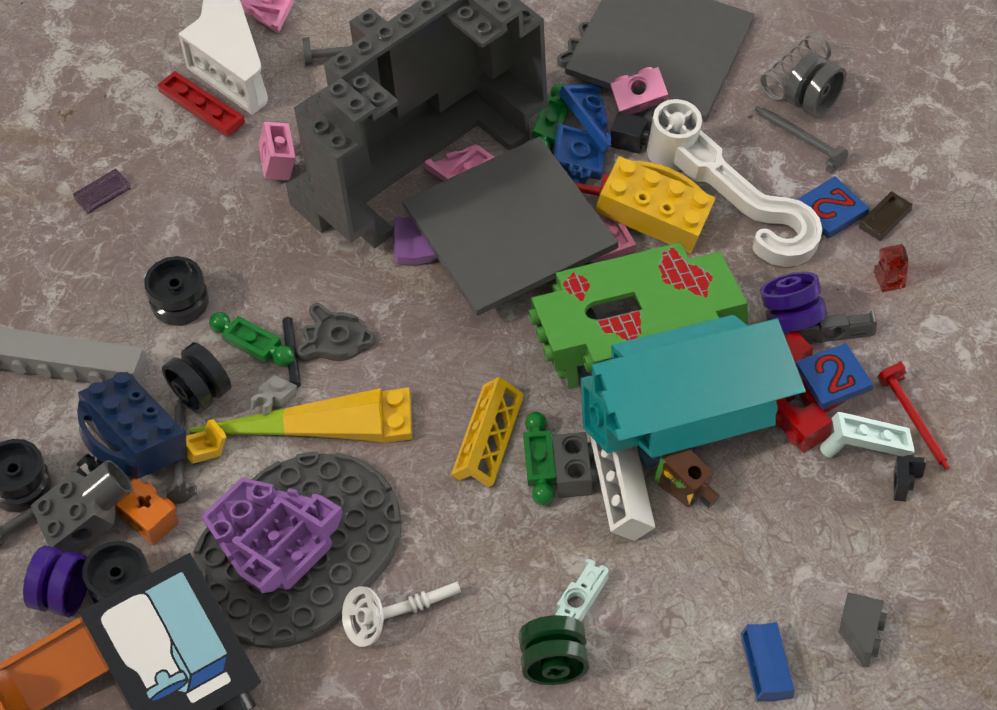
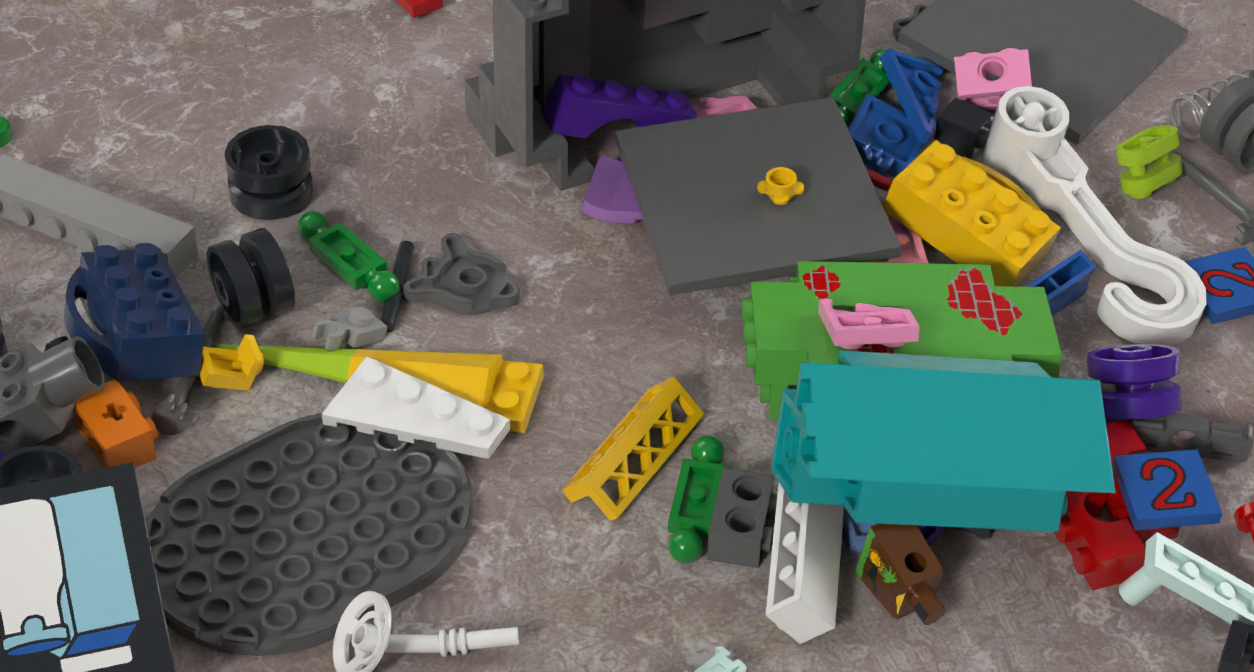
camera: 10 degrees right, 10 degrees down
(102, 191) = (222, 42): clear purple tile -> none
(271, 532) = (275, 496): medium lavender wedge -> none
(276, 151) = (469, 42): bright pink brick -> none
(337, 445) = (412, 409): none -> white wing
(377, 188) = (582, 105): none -> dark purple arch
(527, 211) = (780, 185): none -> yellow plate
(619, 315) = (868, 325): none -> bright pink wing
(732, 226) = (1066, 281): none -> blue piece
(757, 127) = (1149, 160): none -> lime brick

